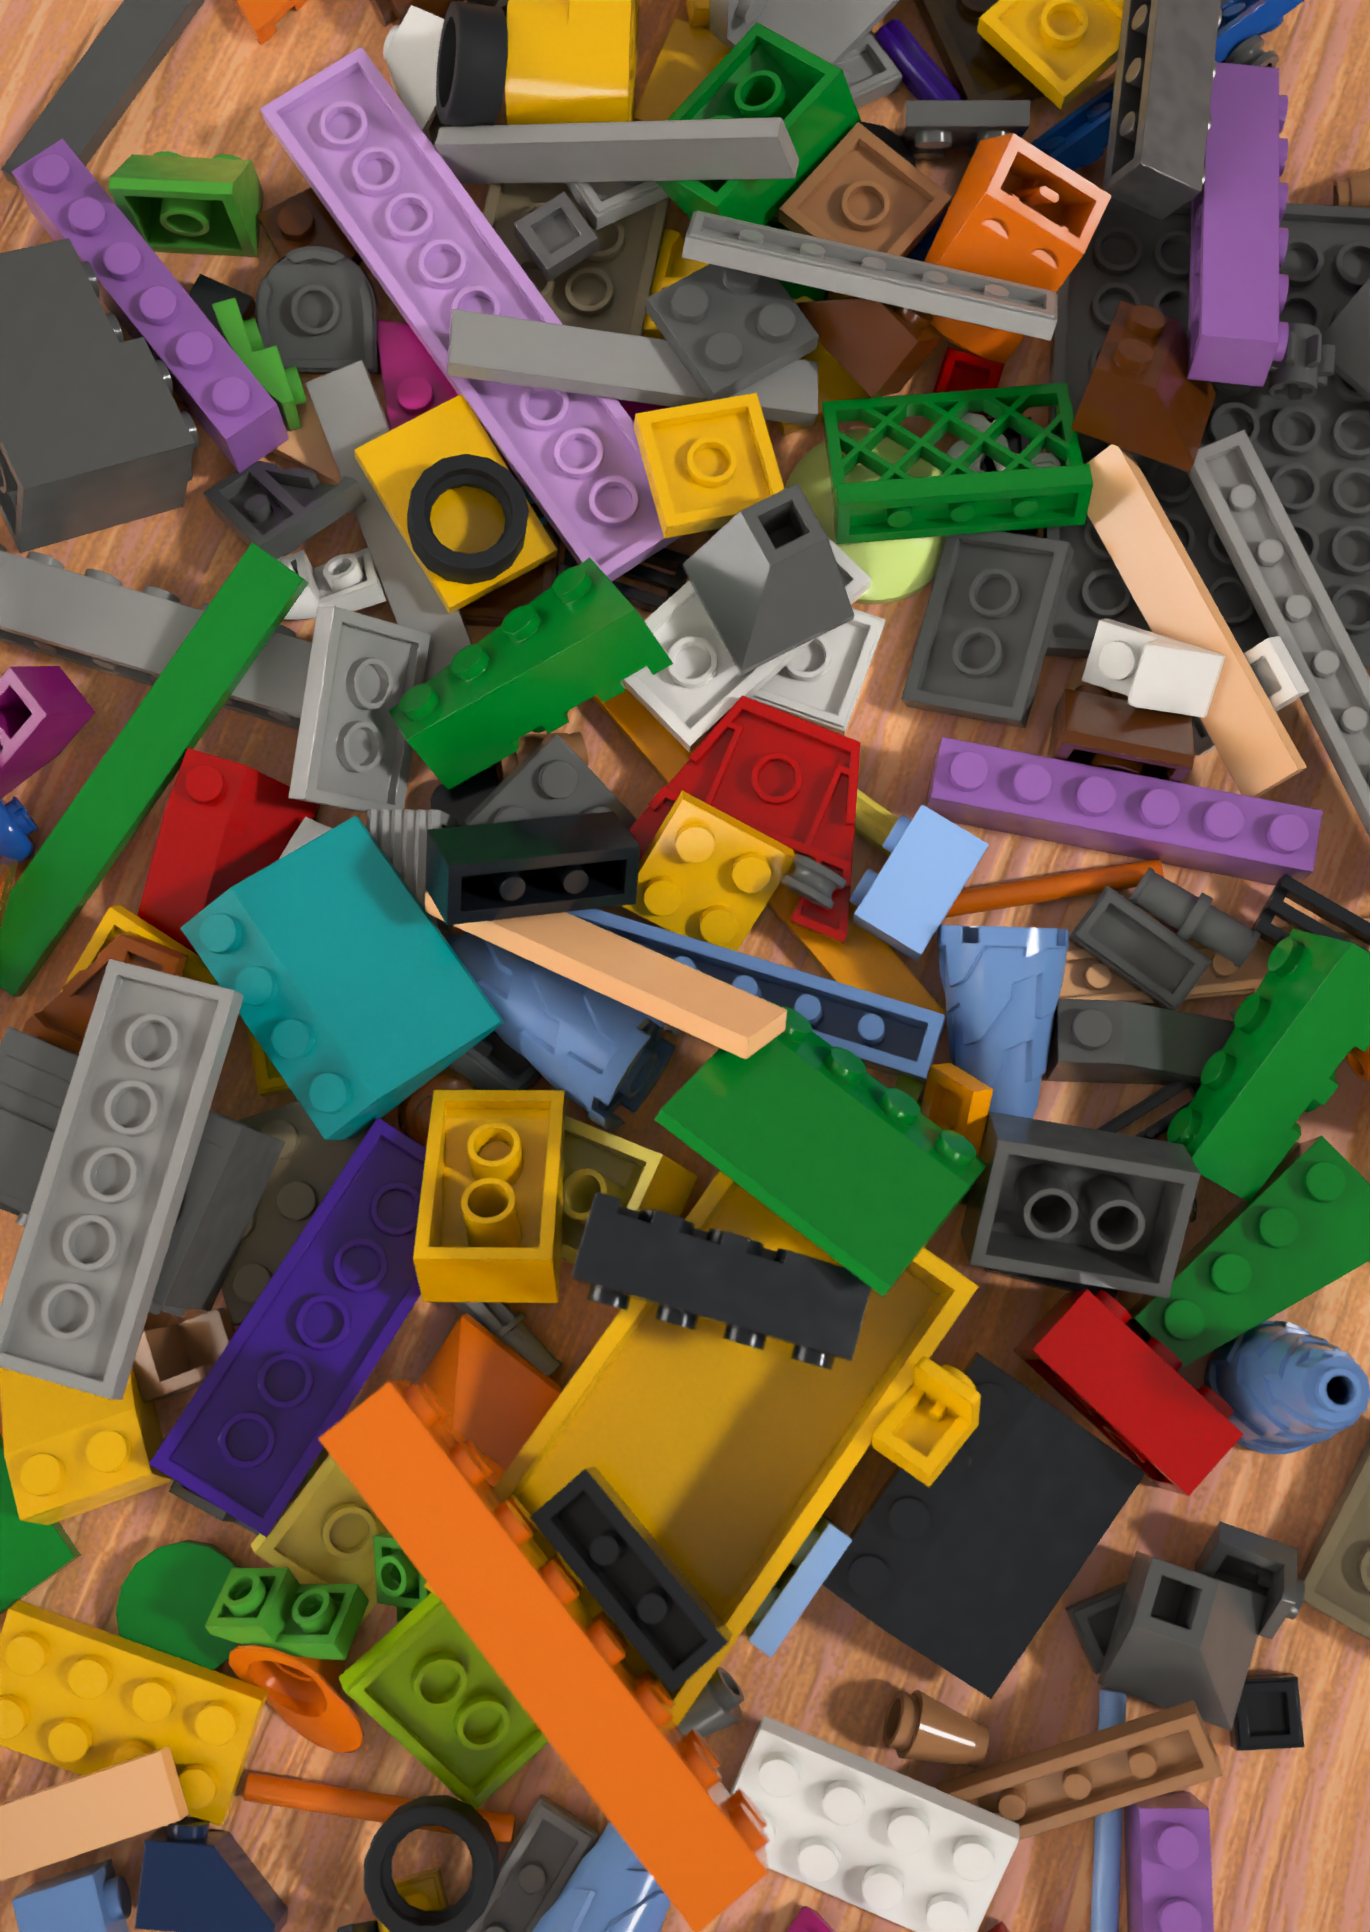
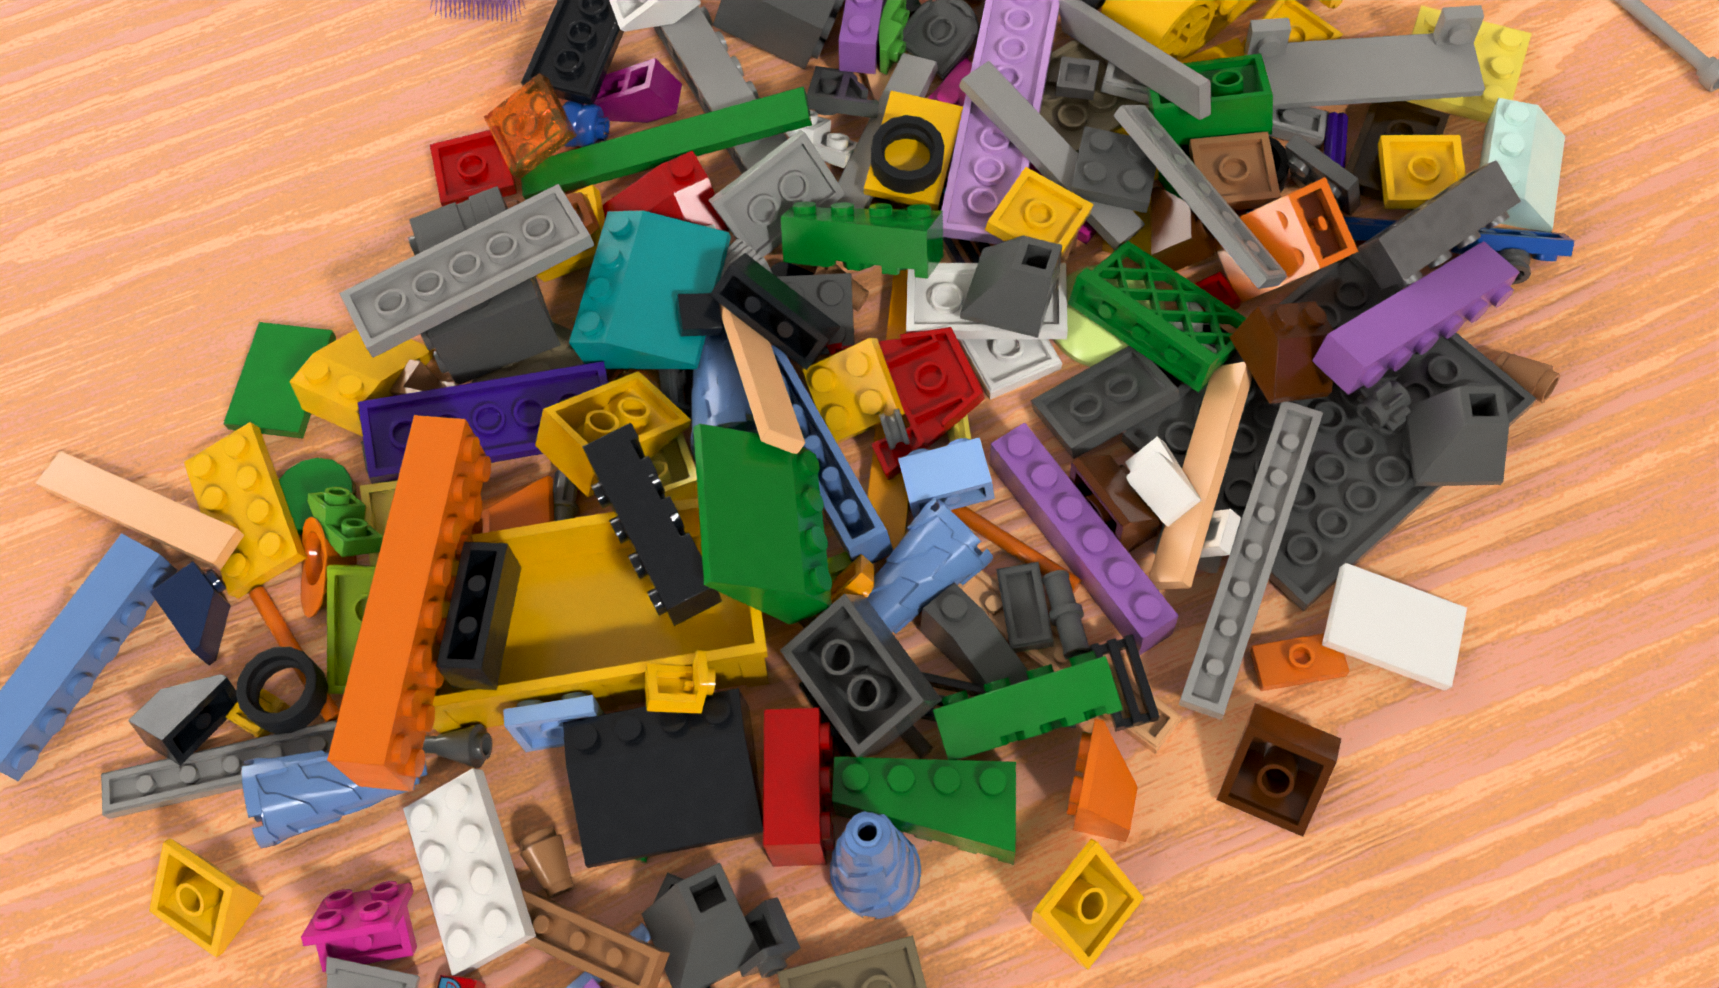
camera: 50 degrees right, 15 degrees down
(444, 956) = (698, 315): none -> black tile

